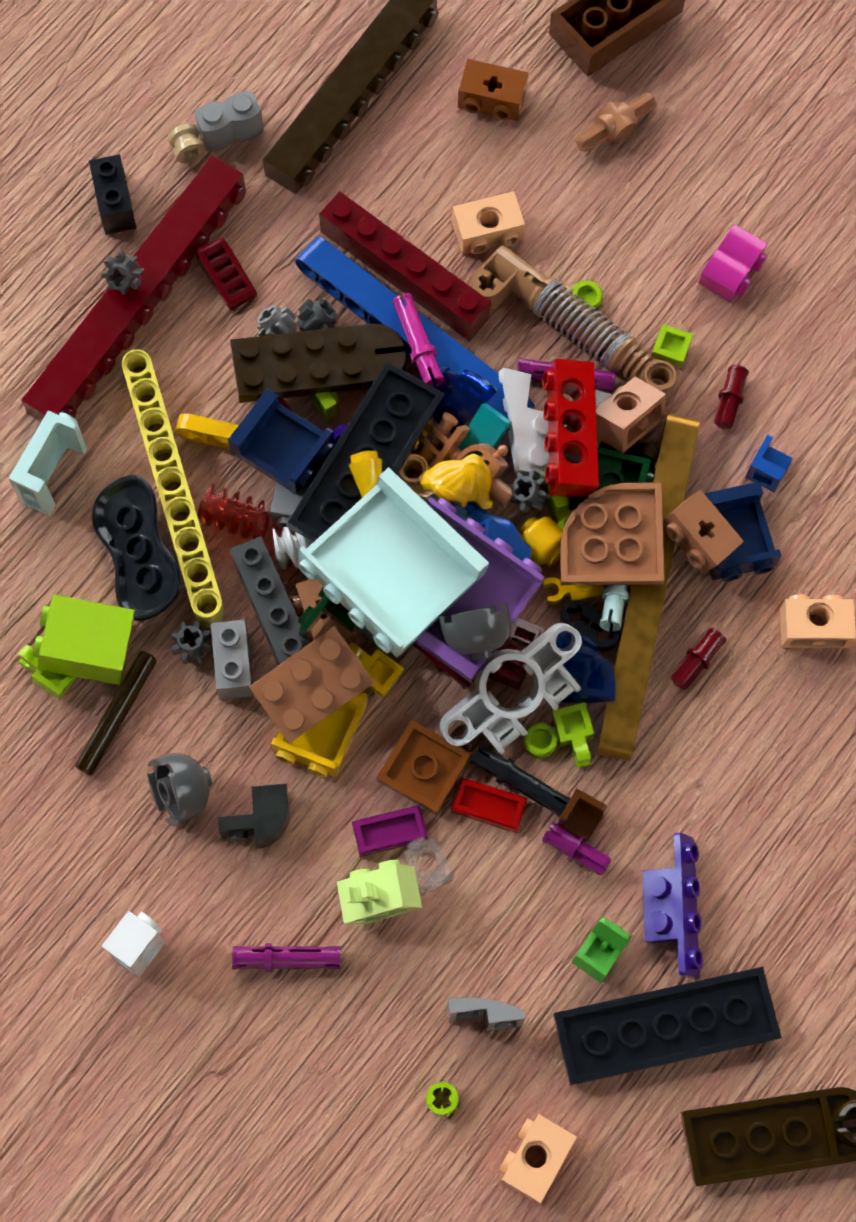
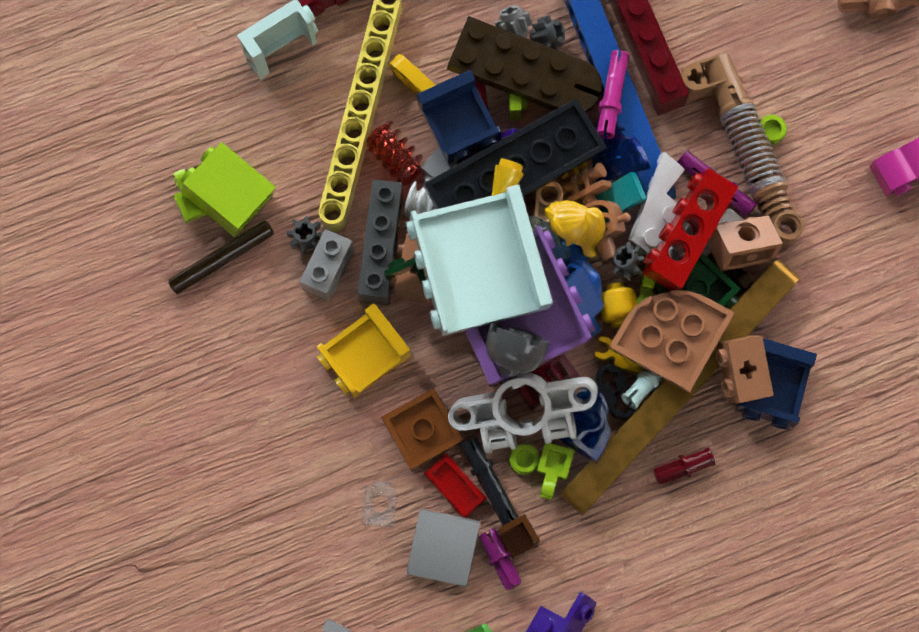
camera: 35 degrees right, 5 degrees up
(128, 527) = (309, 121): black plate -> none
(134, 942) = (129, 439): white brick -> none
(179, 786) = (233, 340): dark grey cylinder -> none
(268, 819) = (283, 402): pearl dark grey brick -> none
(278, 957) = (242, 517): magenta pin -> none
(311, 684) = (371, 318): nougat plate -> none
(379, 893) = (329, 506): yellowish green brick -> none
(381, 669) = (428, 338): yellow plate -> none
(388, 830) = (368, 462): magenta tile -> none
(497, 210) = (741, 22): light nougat brick -> none
(514, 870) = (443, 547): none -> light grey slope
(672, 345) = (815, 206): lime plate -> none
(731, 396) = (838, 273): dark red axle -> none
(768, 466) = (835, 344): blue panel -> none
(800, 632) = (778, 491): light nougat brick -> none

